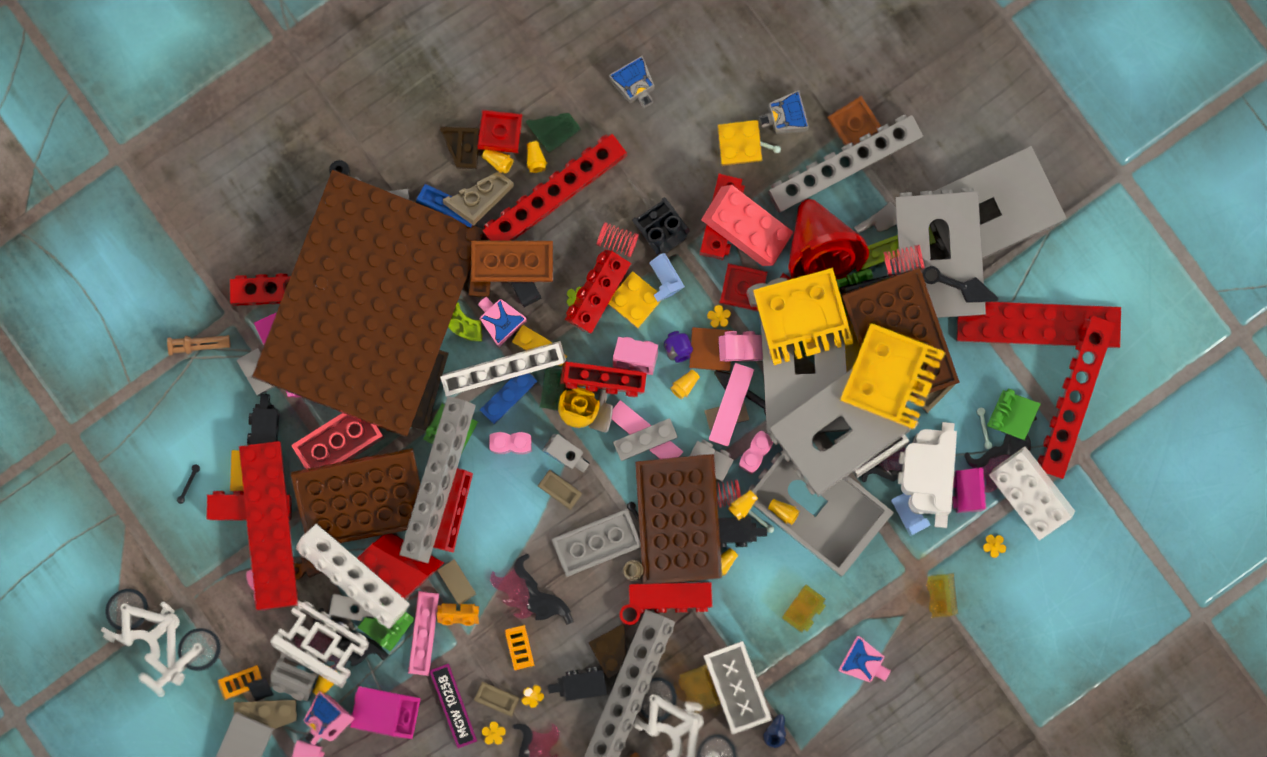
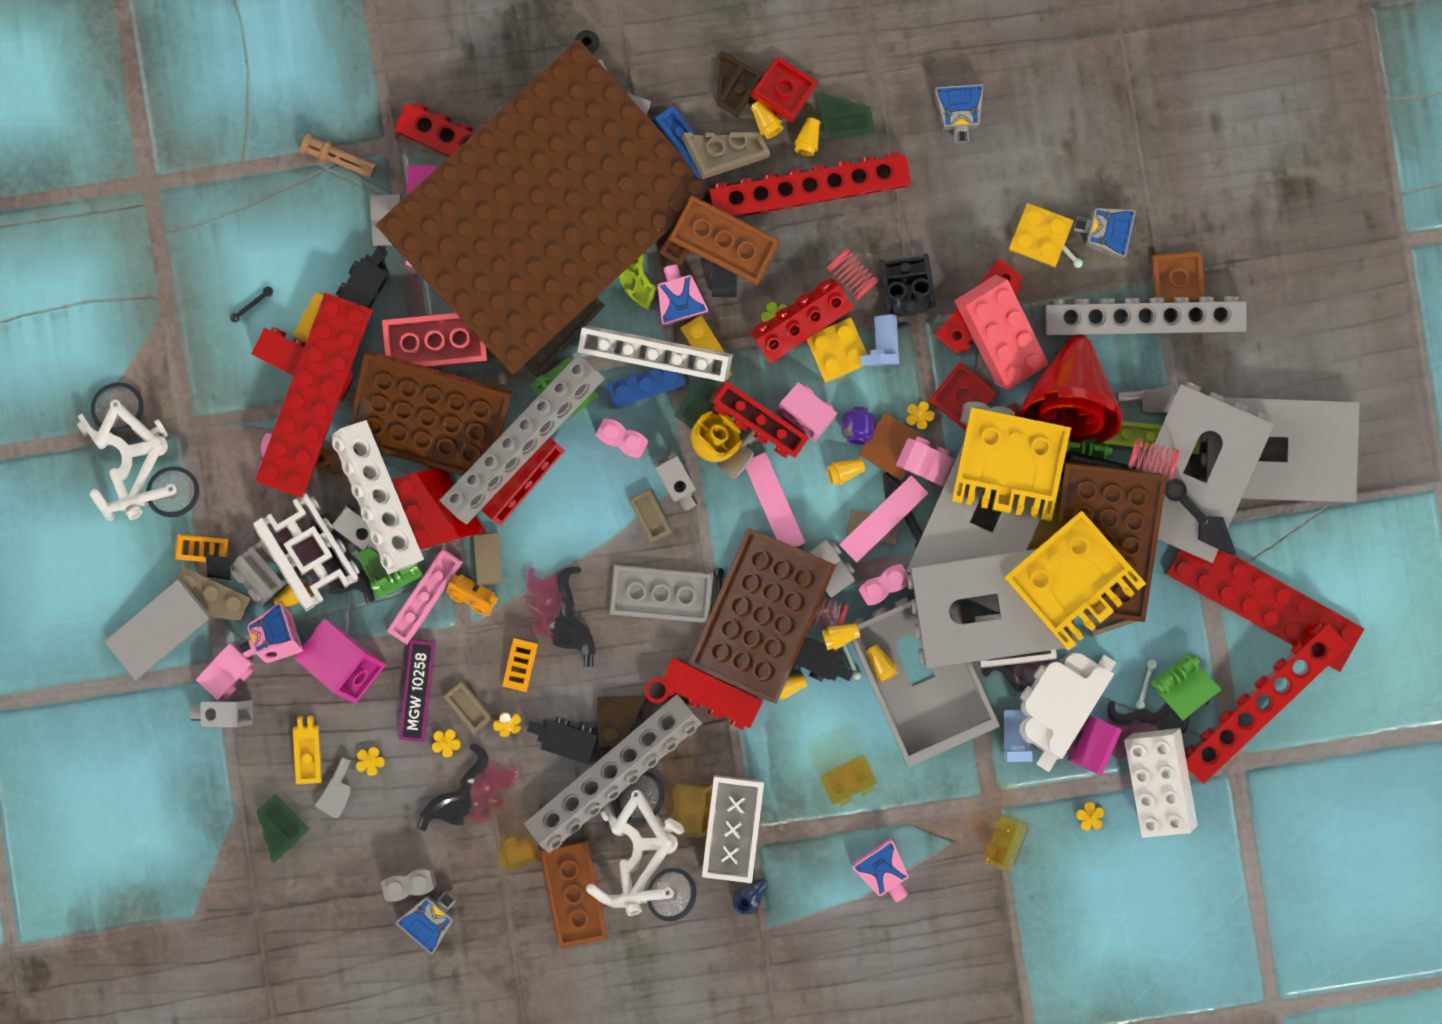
camera: 20 degrees right, 5 degrees up
(633, 570) = (685, 644): dark tan plate -> none
(645, 439) = (770, 509): light grey plate -> none

